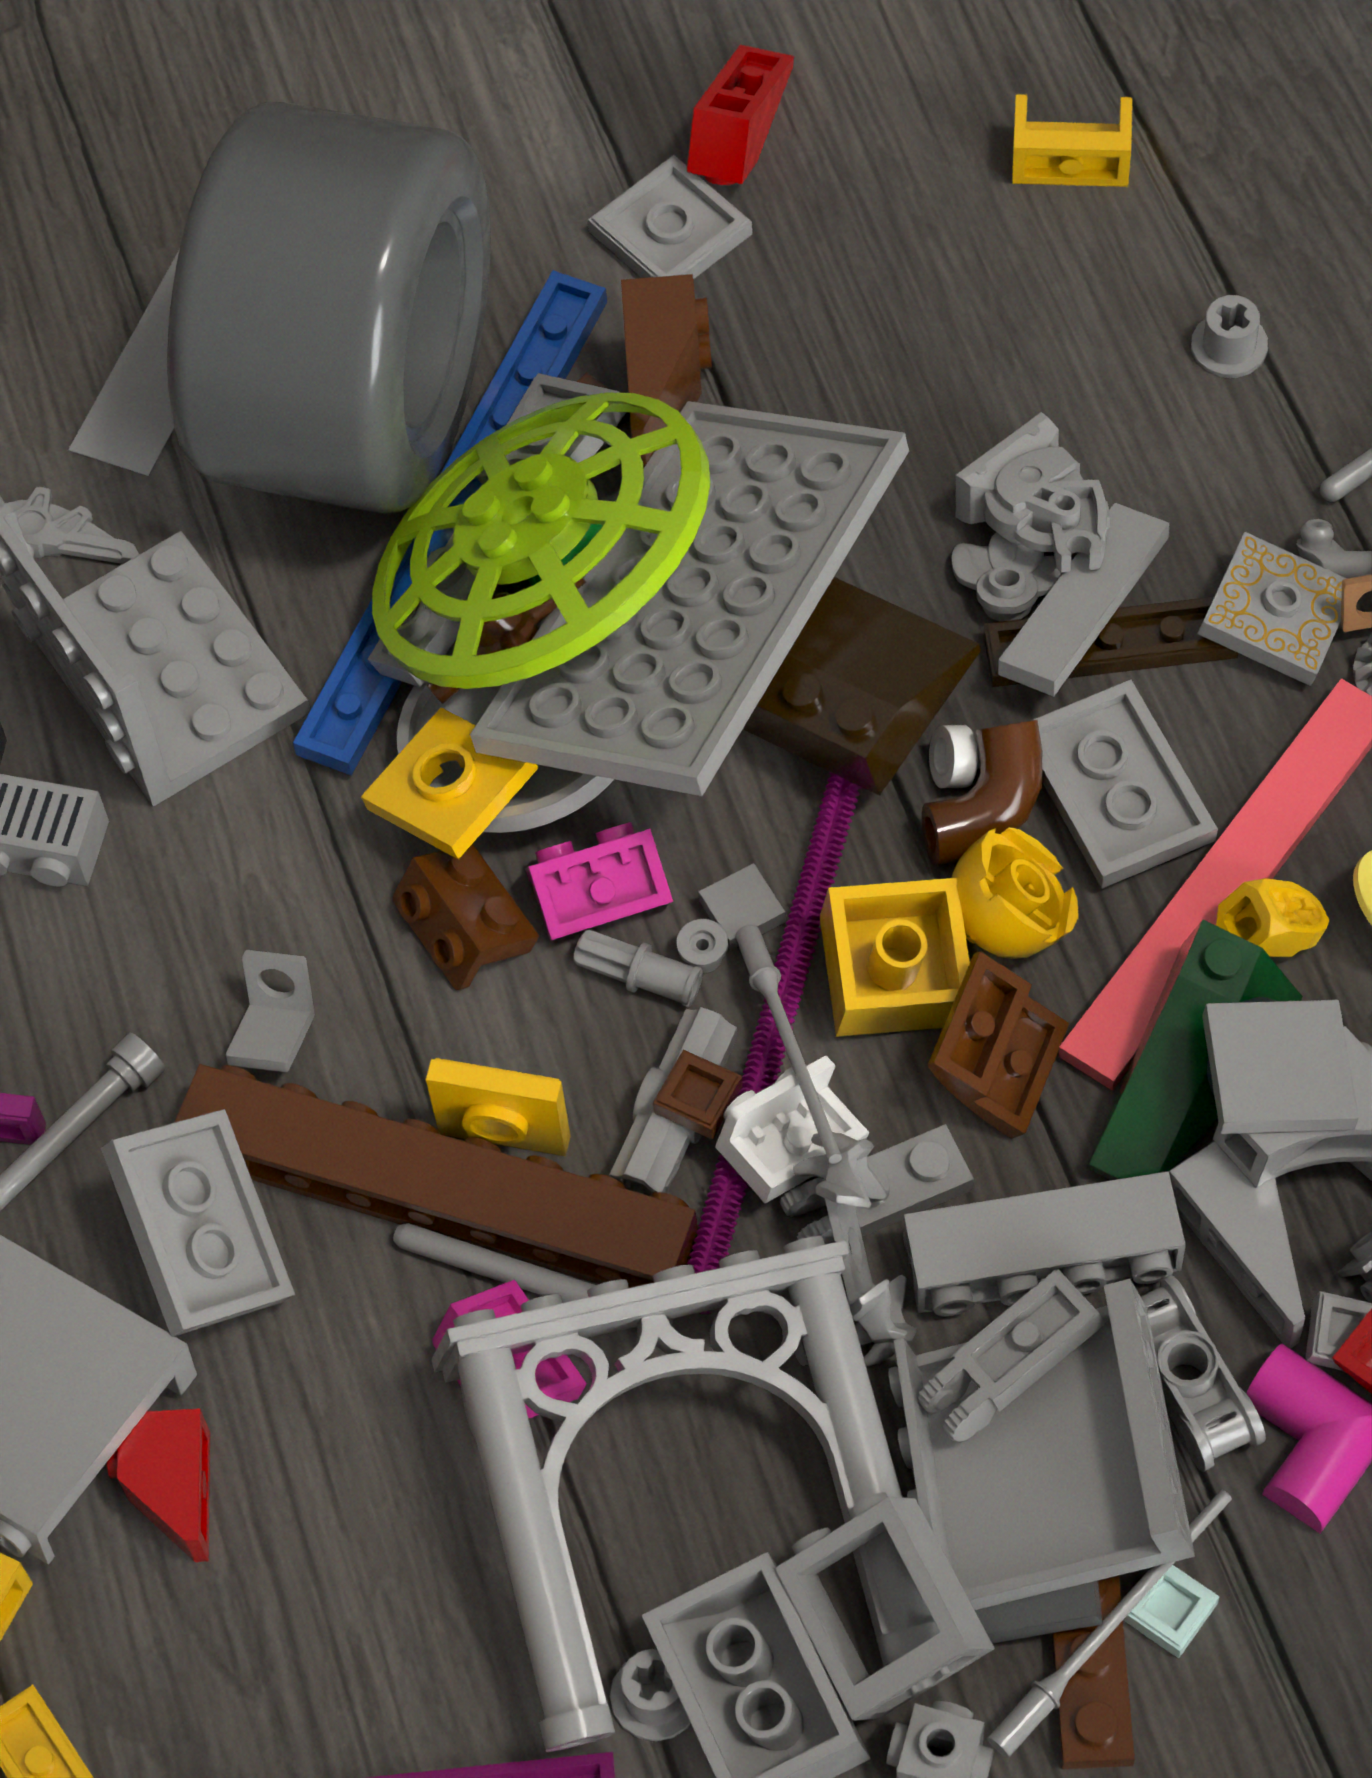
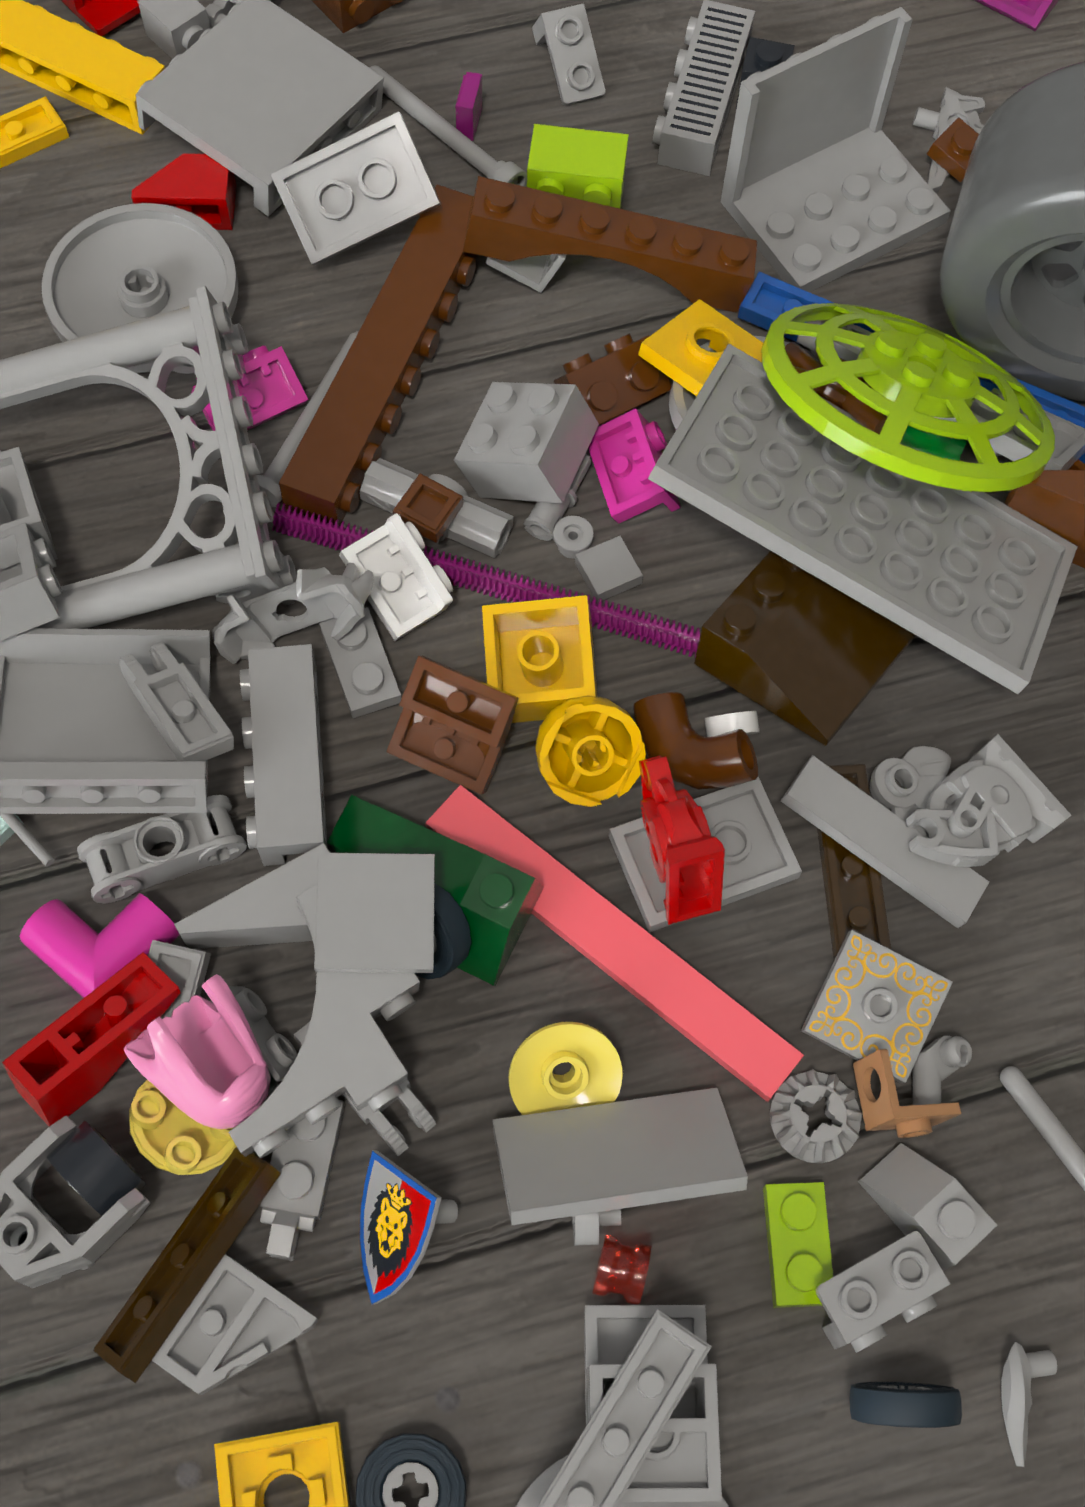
camera: 85 degrees right, 5 degrees up
(82, 518) = (954, 148): none -> reddish brown plate
(169, 955) = (578, 163): none -> lime brick
(261, 973) = (526, 222): none -> reddish brown arch
(348, 1512) = (134, 267): none -> light grey dish
(499, 1106) = (433, 379): yellow piece -> none
(587, 989) = (527, 441): none -> light grey brick
(765, 978) = (532, 568): light grey piece -> none
(1128, 780) = (680, 845): none -> red piece
(1274, 916) = (555, 959): yellow rock -> none

